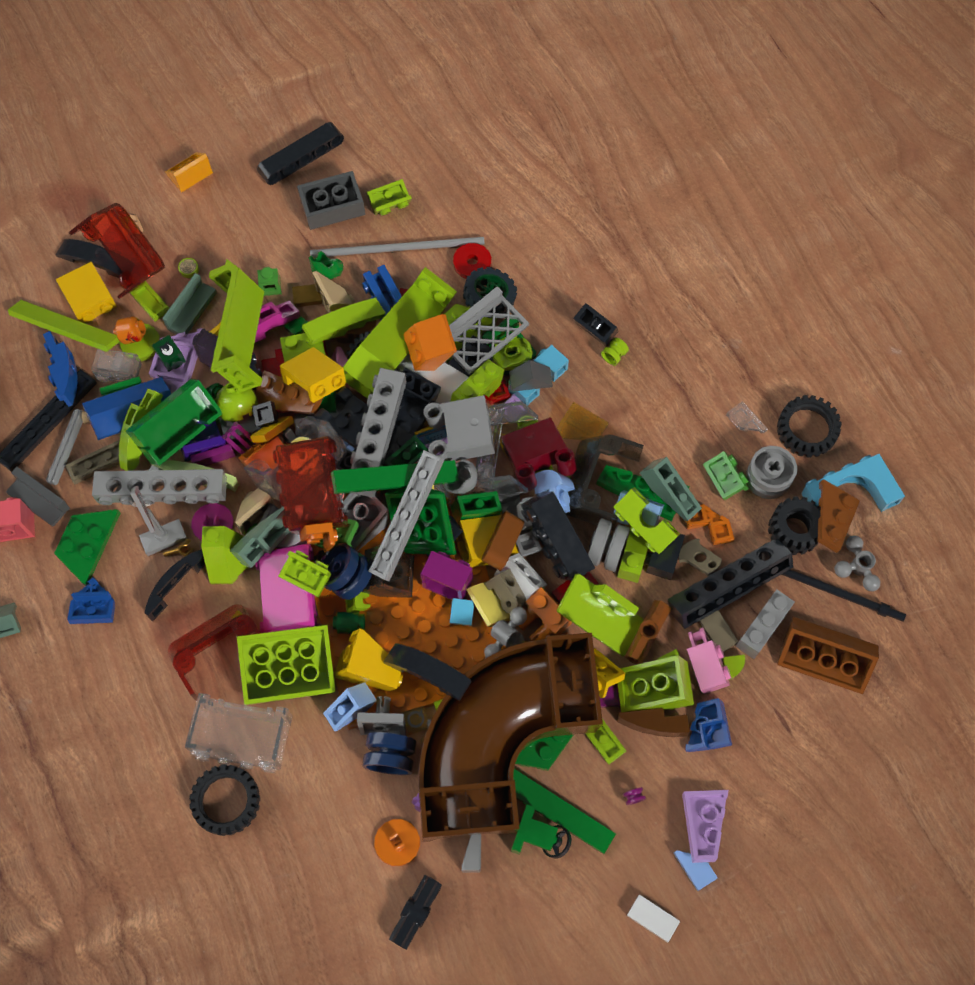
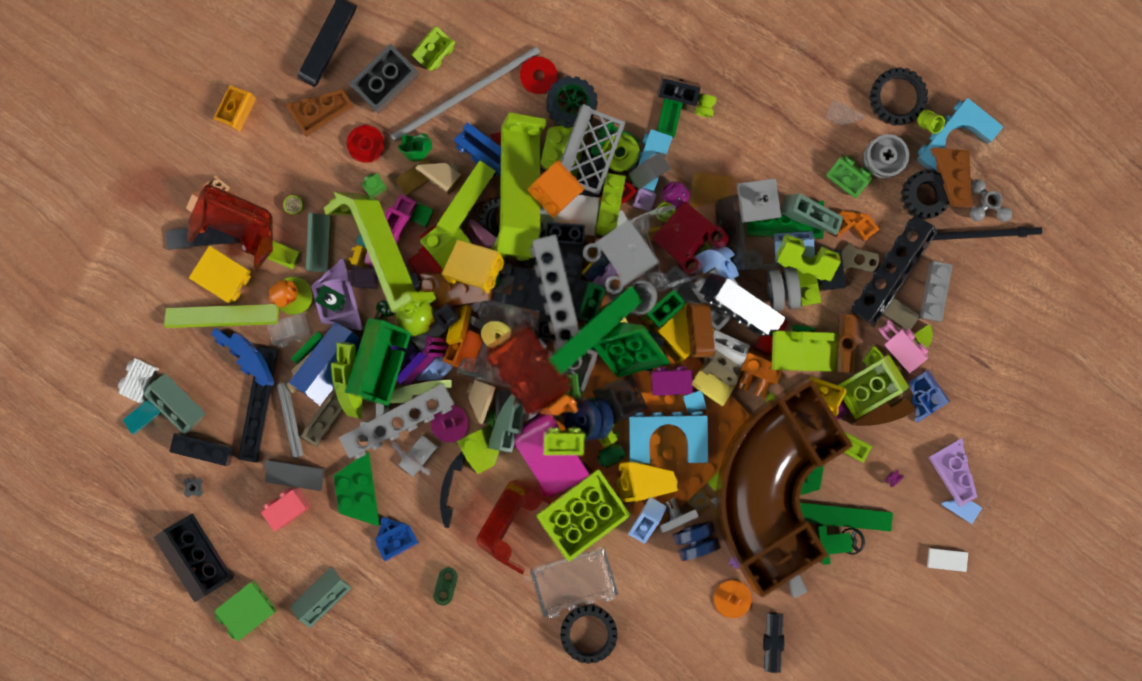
camera: 25 degrees left, 20 degrees up
(110, 674) = (445, 585): none -> clear green plate
(182, 549) = (441, 458): pearl gold hand -> none
(230, 465) = (435, 370): none -> light blue tile
(254, 203) = (318, 111): none -> dark orange wing
(284, 248) = (365, 144): none -> red tile
(396, 610) = (693, 426): none -> medium azure arch
(406, 515) = (620, 356): light grey tile -> none
(428, 669) = (698, 470): black slope -> none
(506, 633) = (739, 404): light grey piece -> none
(546, 409) = (675, 194): none -> magenta head
(577, 346) = (669, 117): none -> green tile
(623, 446) = (758, 200): none -> light grey tile
(828, 655) = (994, 292): dark orange slope -> none
(832, 458) = (932, 122): none -> lime wheel

